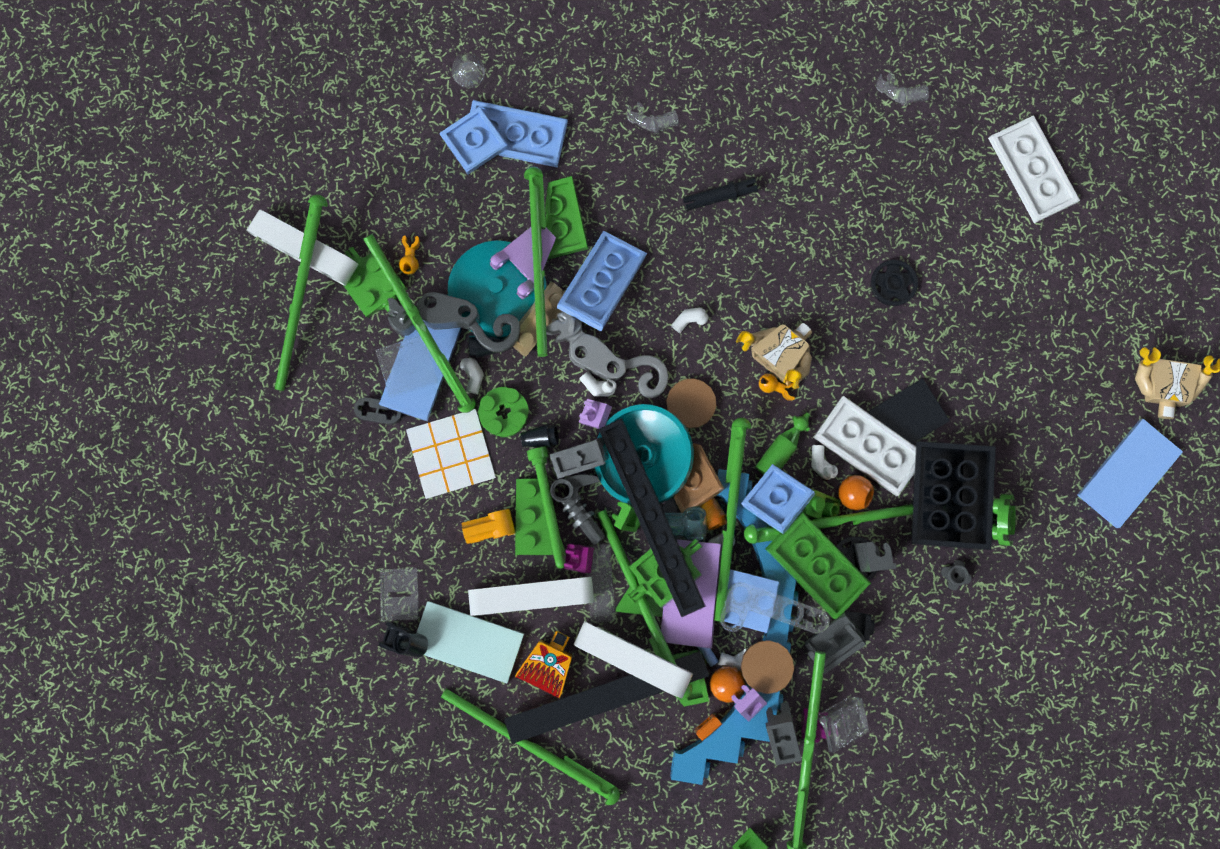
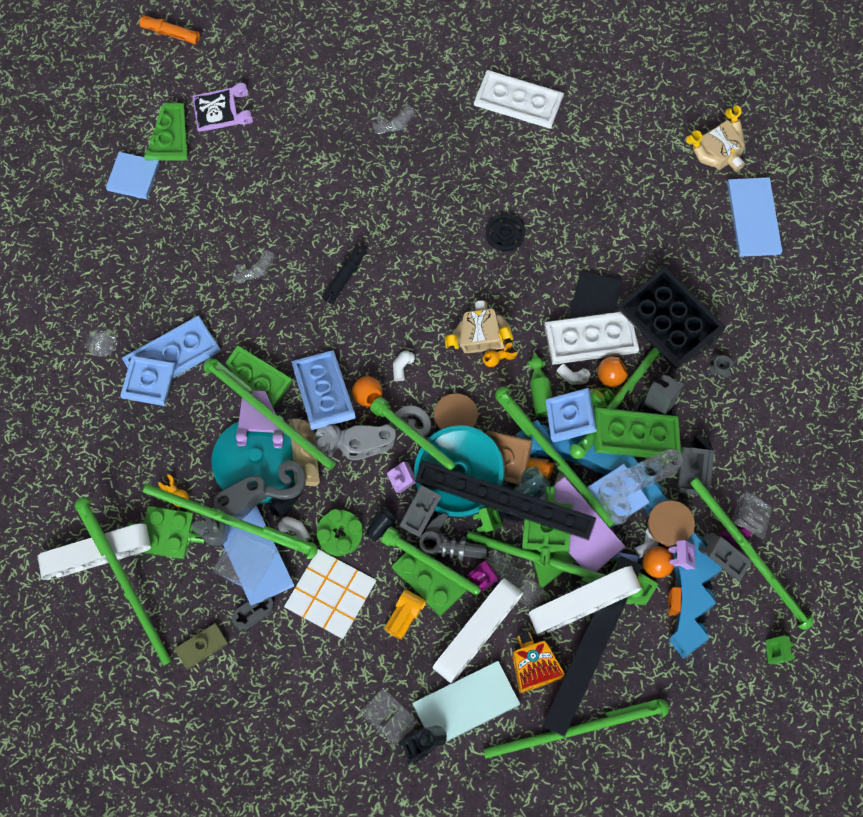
camera: 50 degrees left, 15 degrees down
(315, 400) = (201, 646): none -> olive plate
(598, 388) = (386, 460): white arm -> none
(634, 341) = (381, 408): none -> bright green piece
(637, 315) = (367, 390): none -> orange piece
(1005, 519) = (719, 309): bright green plate -> none

